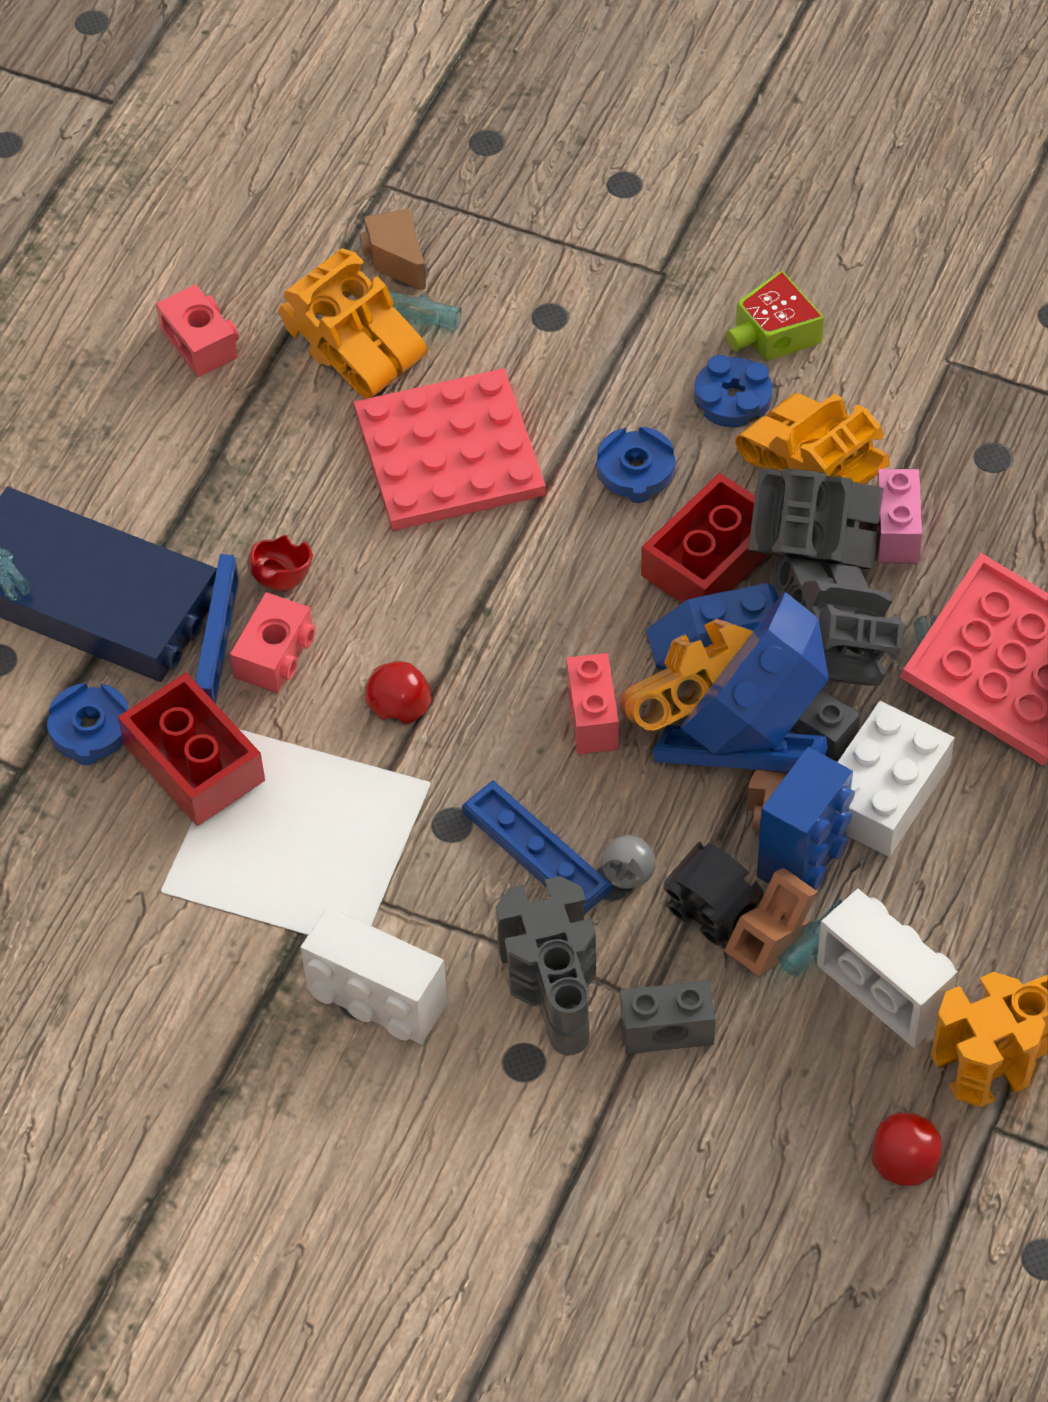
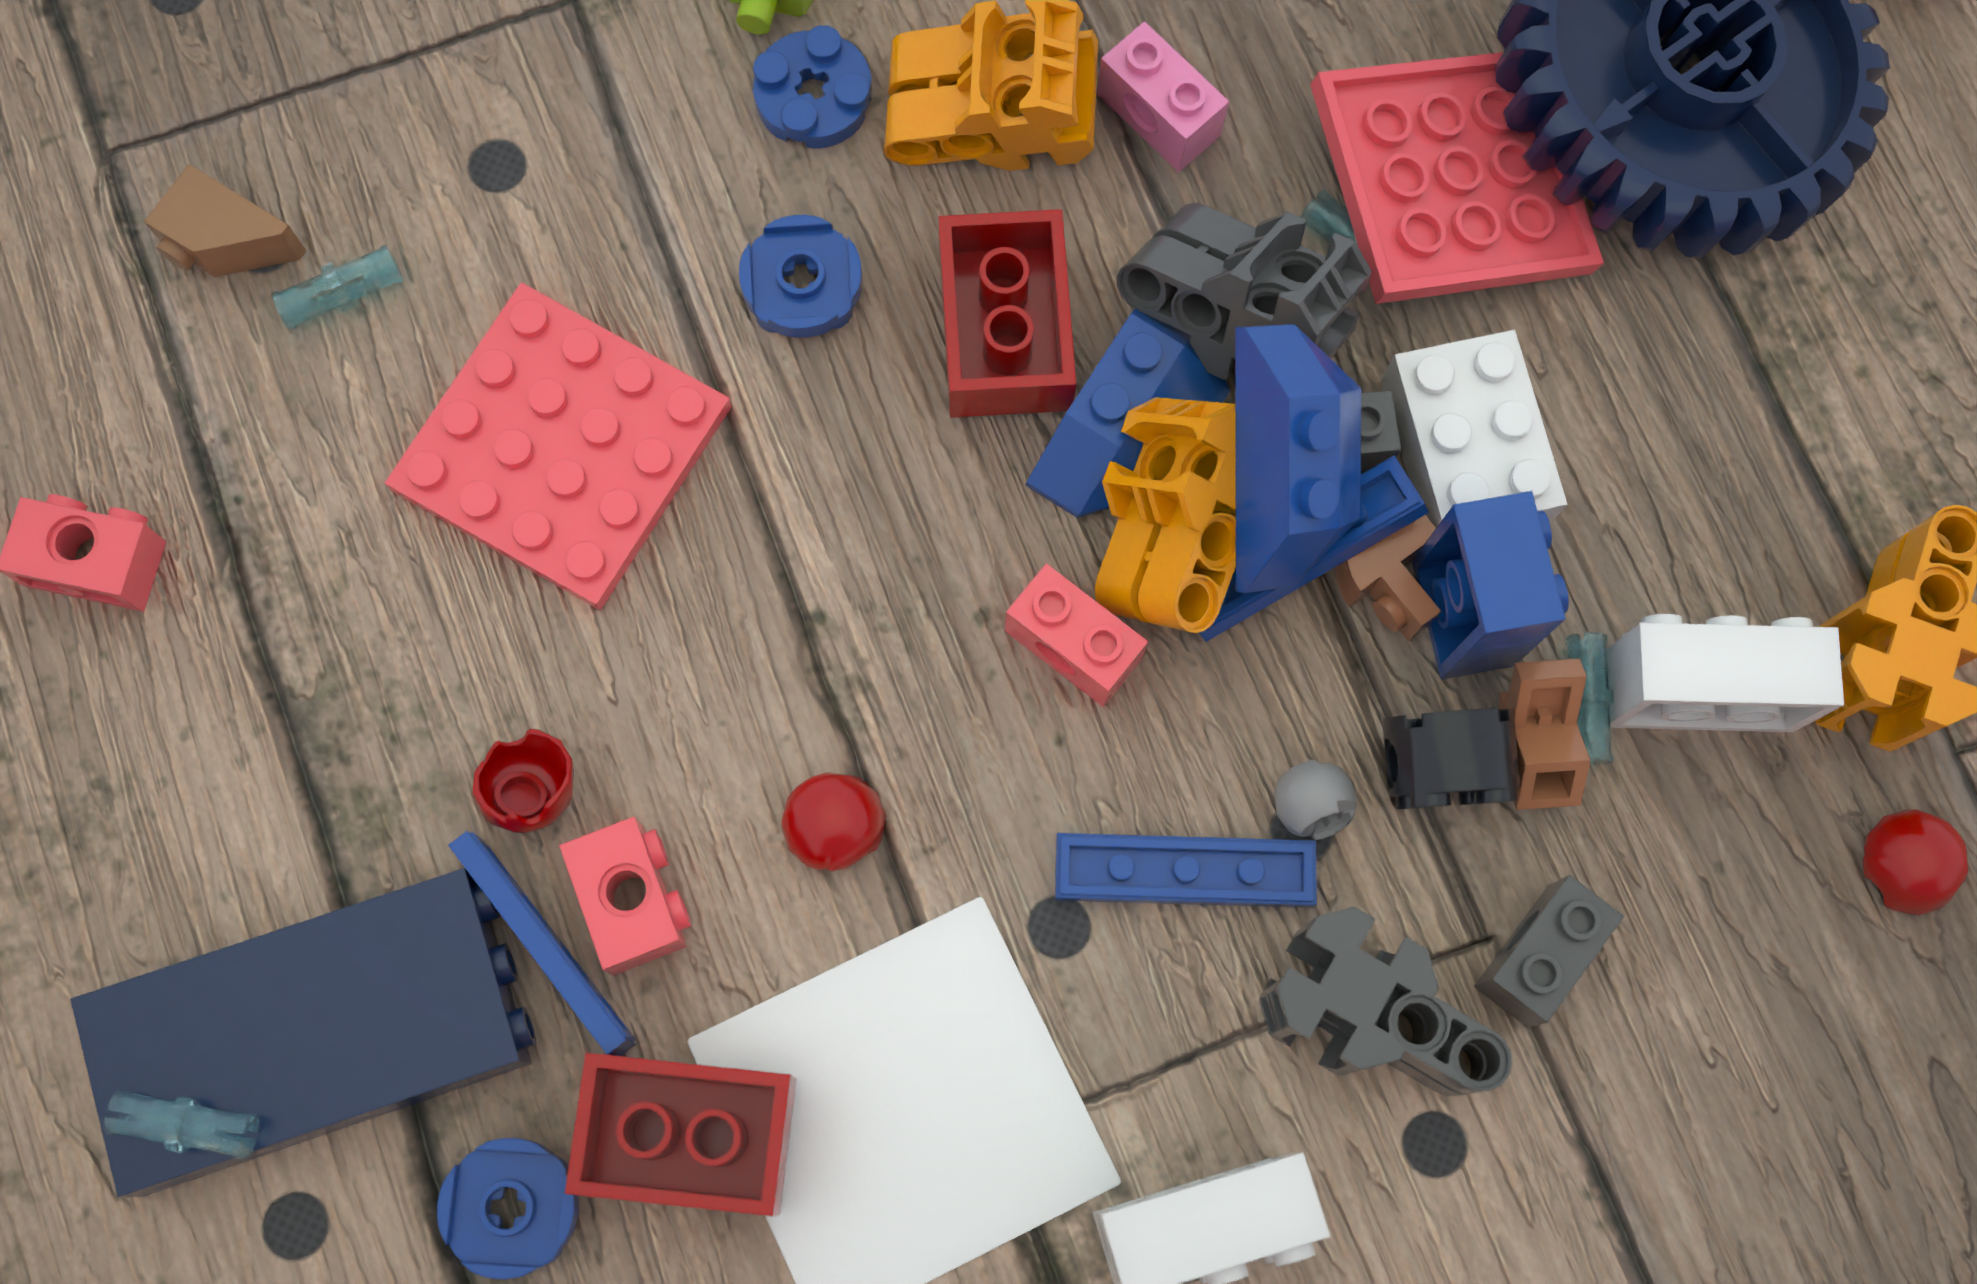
camera: 50 degrees left, 20 degrees up
(357, 337) = (314, 385): light orange connector -> none
(815, 517) = (1113, 191): dark grey connector -> none

